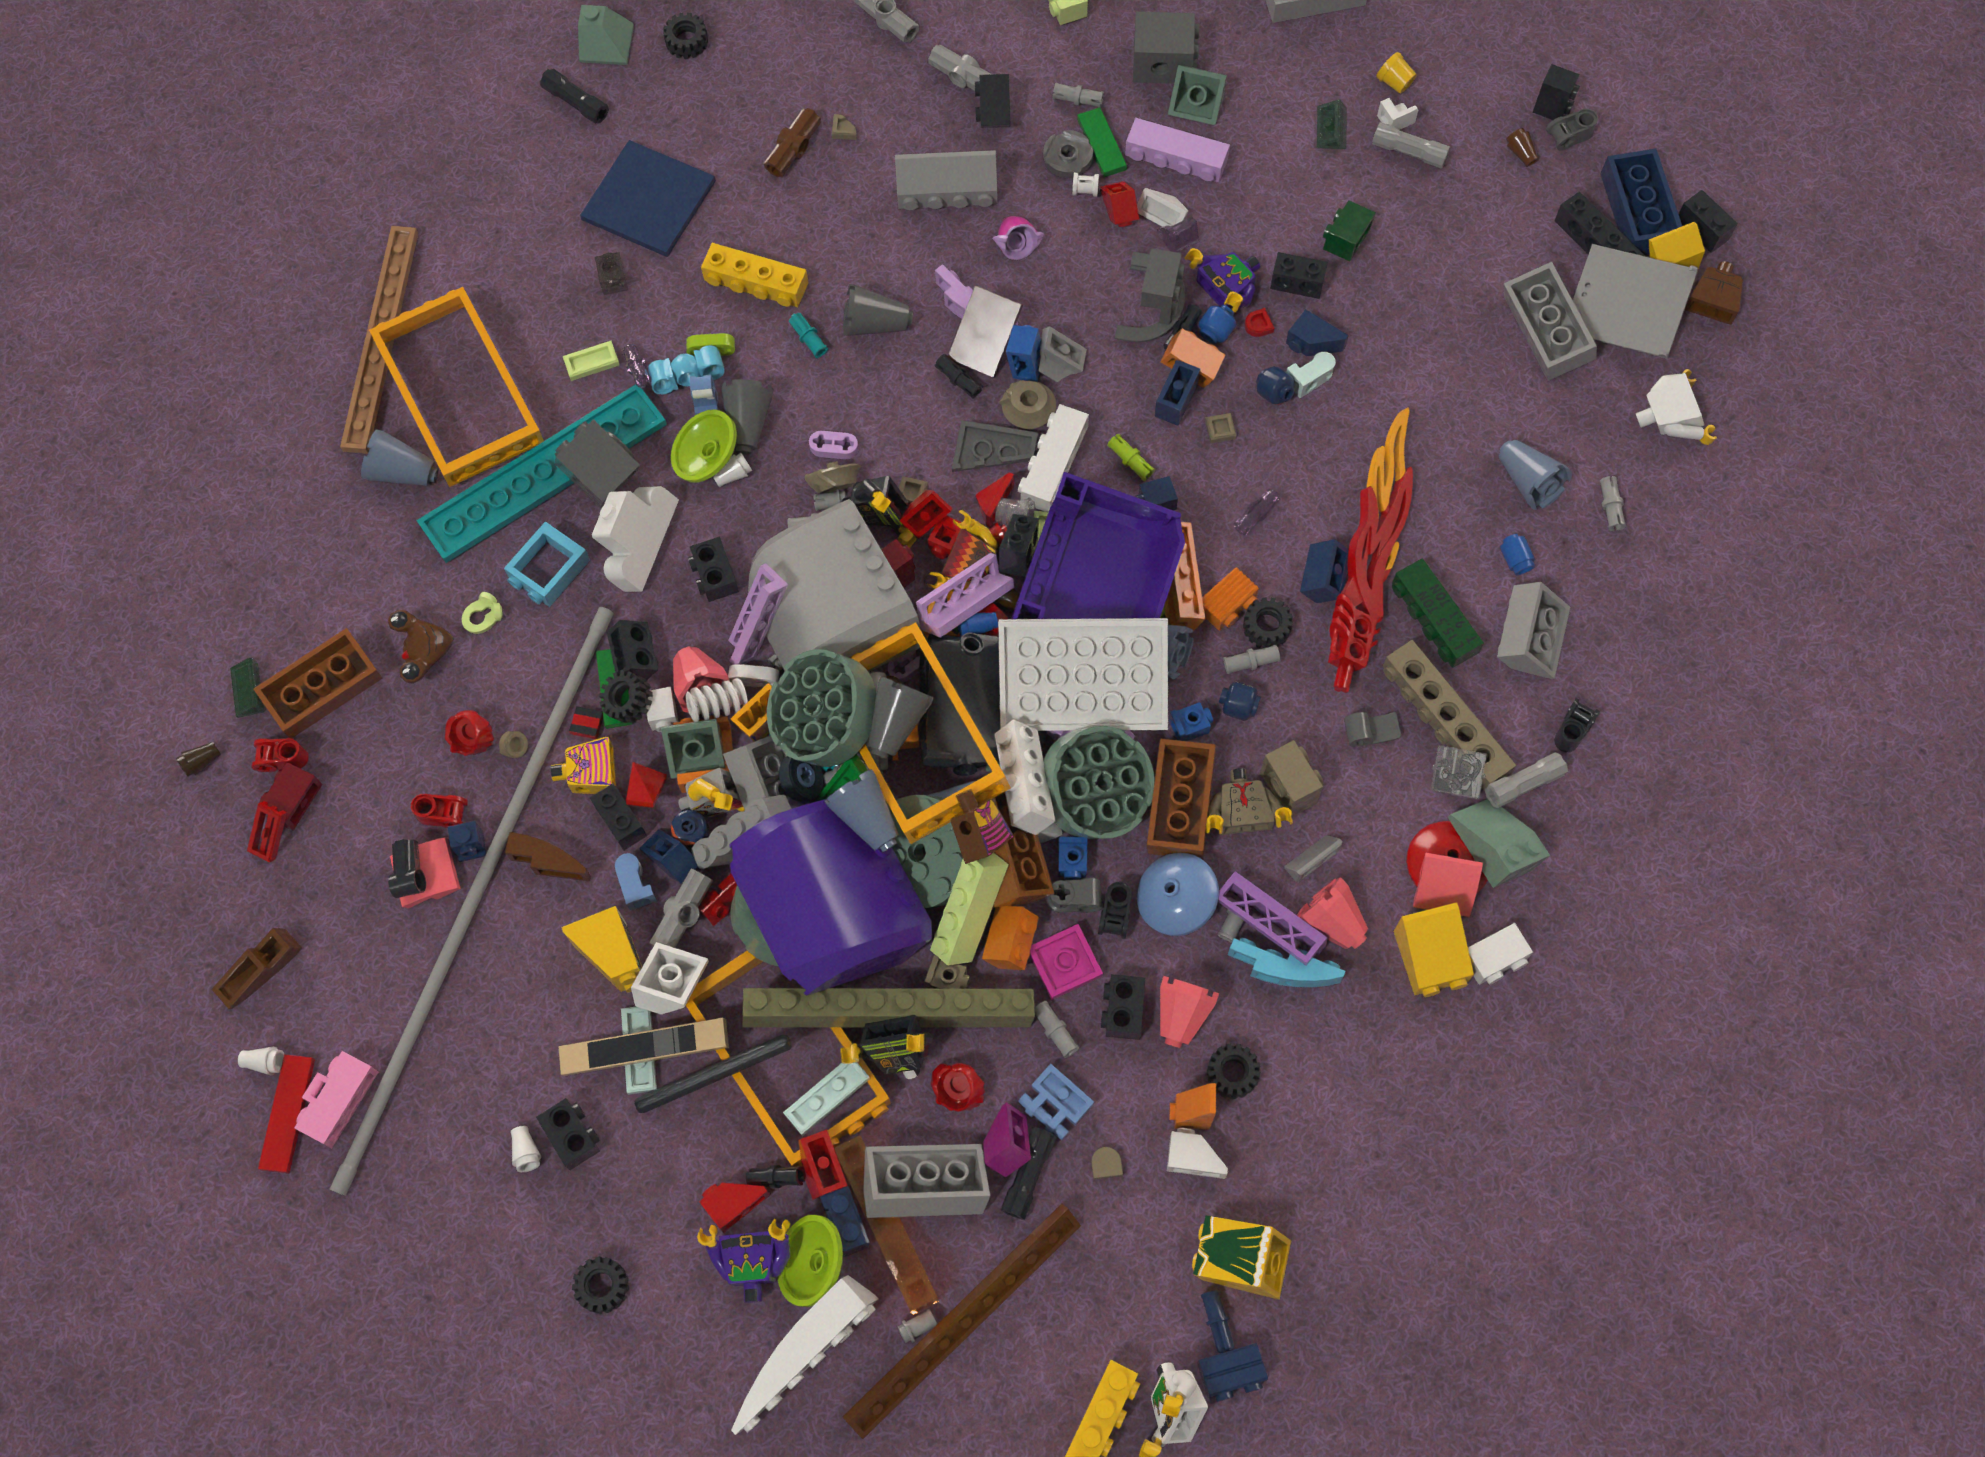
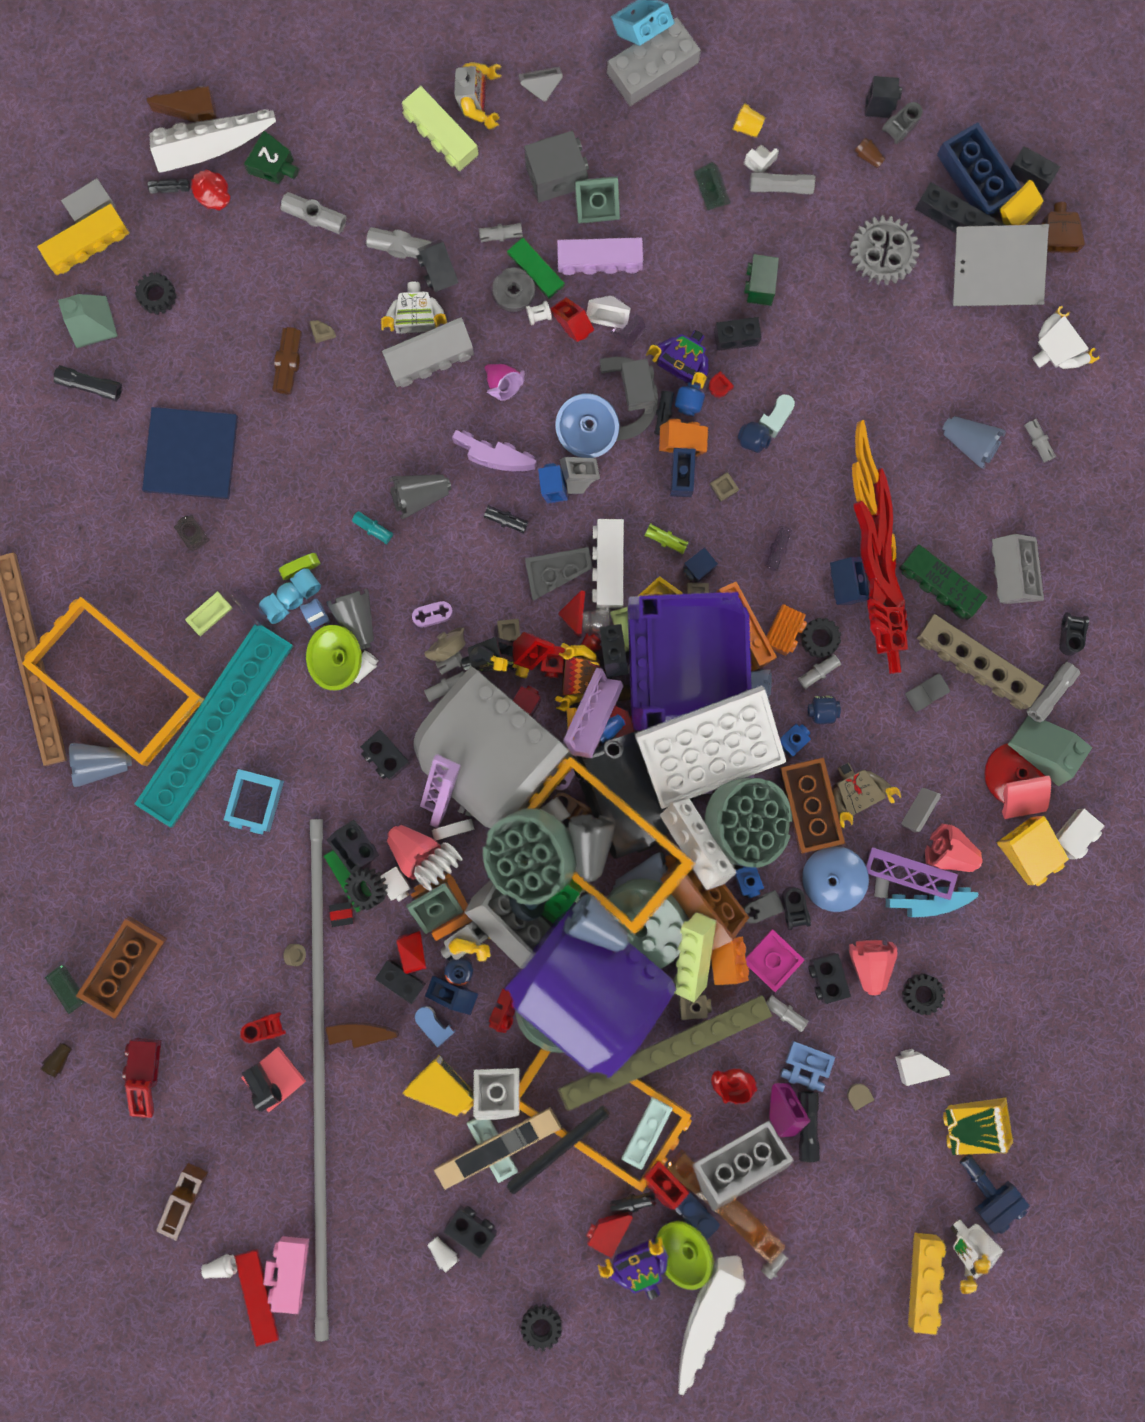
camera: 30 degrees left, 15 degrees up
(274, 754) = (115, 1033): red piece -> none
(422, 646) = (188, 905): reddish brown head -> none
(467, 841) = (295, 1044): dark blue brick -> none
(468, 733) = (256, 961): red hair -> none
(485, 601) = (218, 848): yellowish green piece -> none
(587, 767) = (360, 951): torso -> none
(596, 461) = (258, 707): dark grey brick -> none
(633, 531) = (312, 752): white brick -> none
(688, 898) = (480, 1035): light grey piece -> none
(715, 849) = (503, 964): light grey brick -> none
(753, 715) = (474, 869): light orange torso -> none
(754, 275) = (308, 492): yellow brick -> none
(892, 1045) = (679, 1079): black torso -> none
(946, 134) = (414, 312): none -> white torso
(961, 1321) = (804, 1249): reddish brown plate -> none
(979, 827) = (689, 909): reddish brown torso -> none
(985, 331) = (513, 476): tile -> none
(1028, 404) = (570, 523): dark tan piece -> none
(1076, 302) = (579, 437): none -> medium blue dish
(1194, 1108) = (911, 1037): orange slope -> none
(1292, 778) = (887, 759): dark tan brick -> none
(1314, 335) = (768, 382): dark blue slope -> none
(1458, 771) = (1003, 705): clear piece -> none
(1482, 236) = (866, 246): none -> light grey gear
(1517, 554) = (985, 510): blue brick -> none
(1550, 321) = (945, 304): light grey brick -> none

